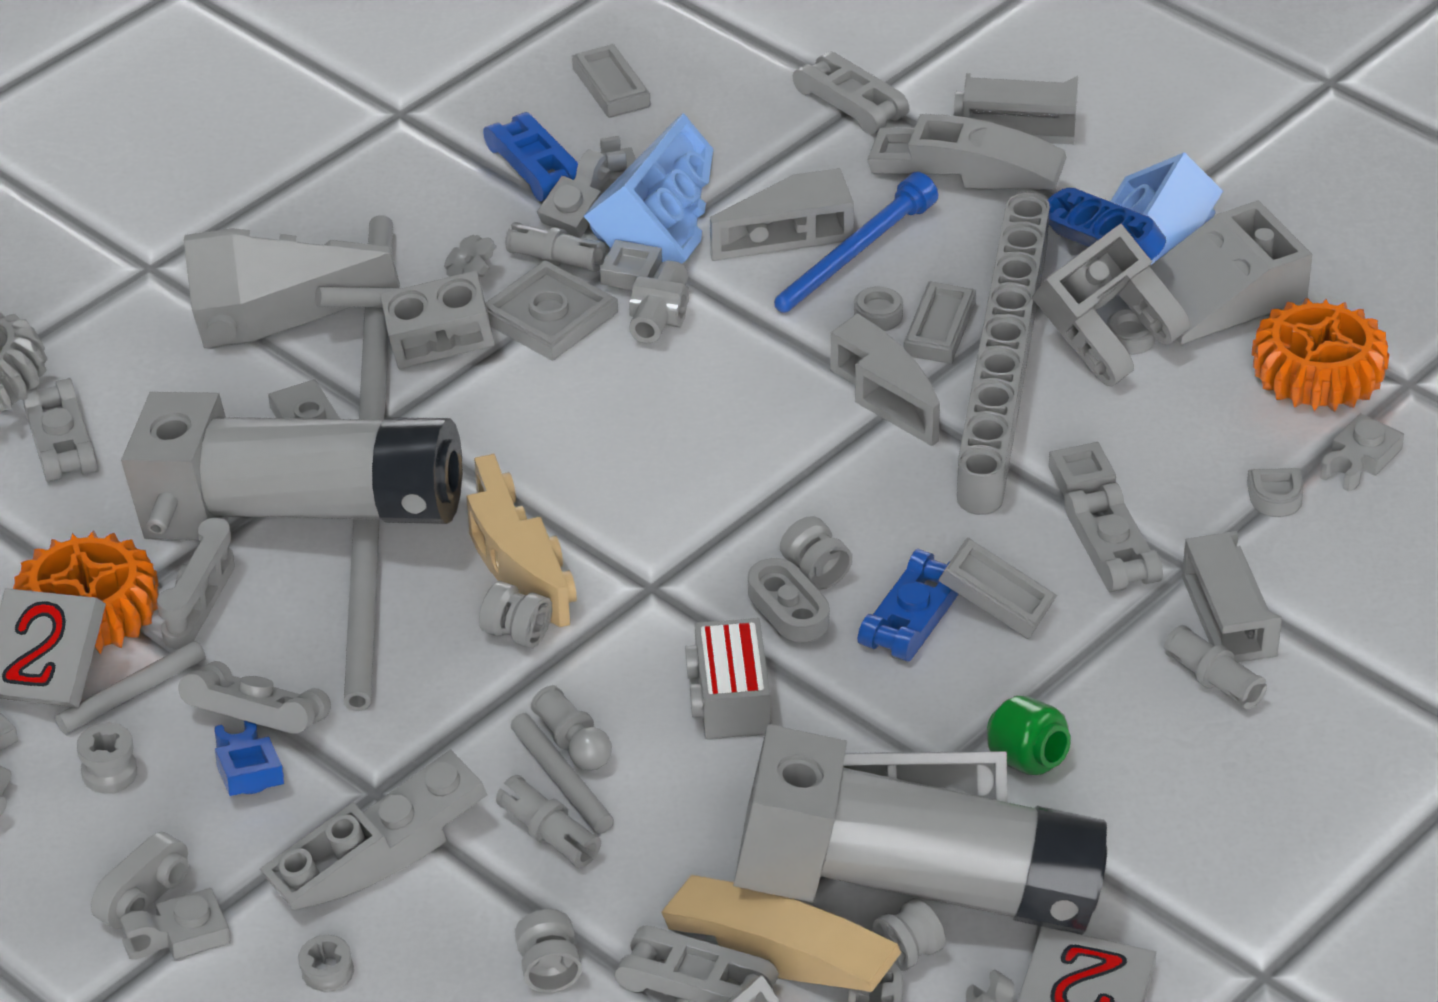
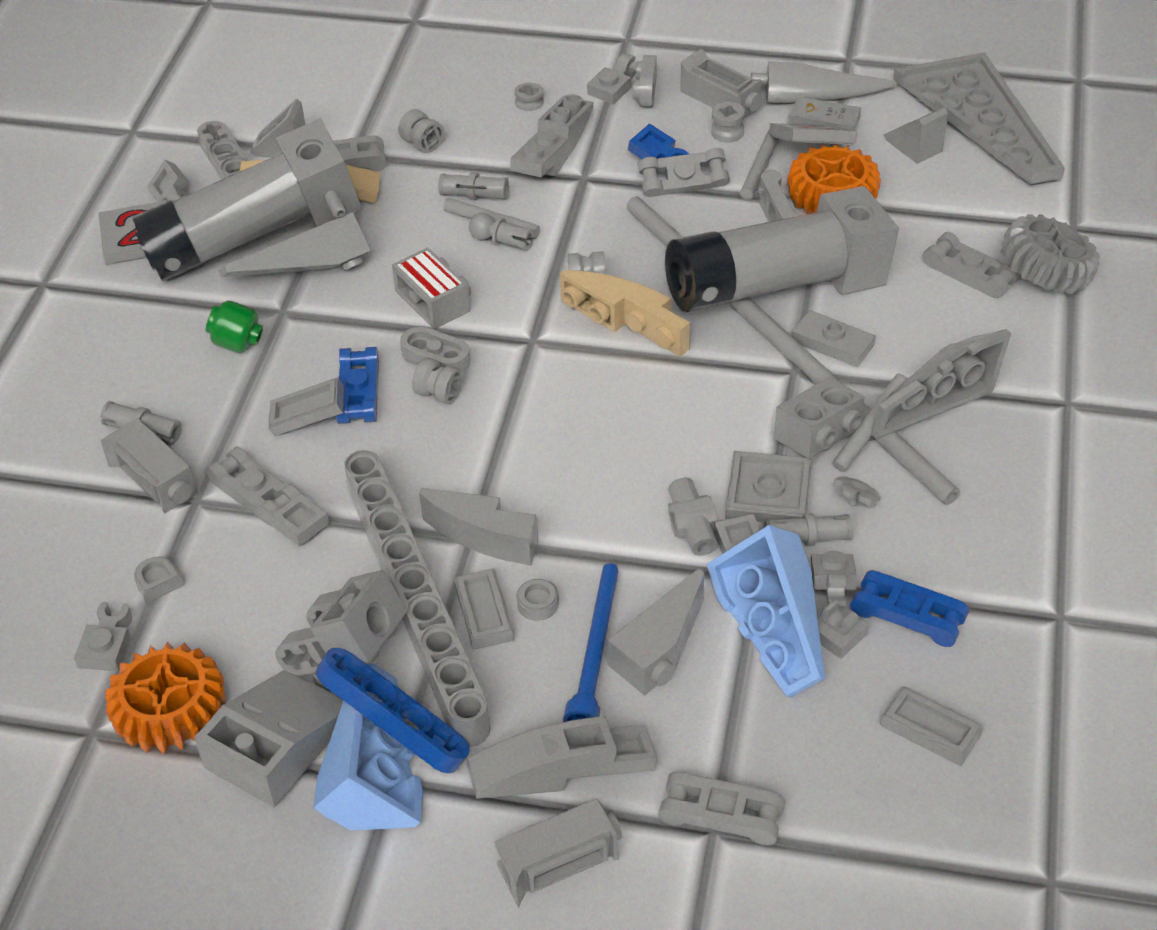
camera: 150 degrees right, 5 degrees up
(50, 809) = (717, 83): none -> light grey window

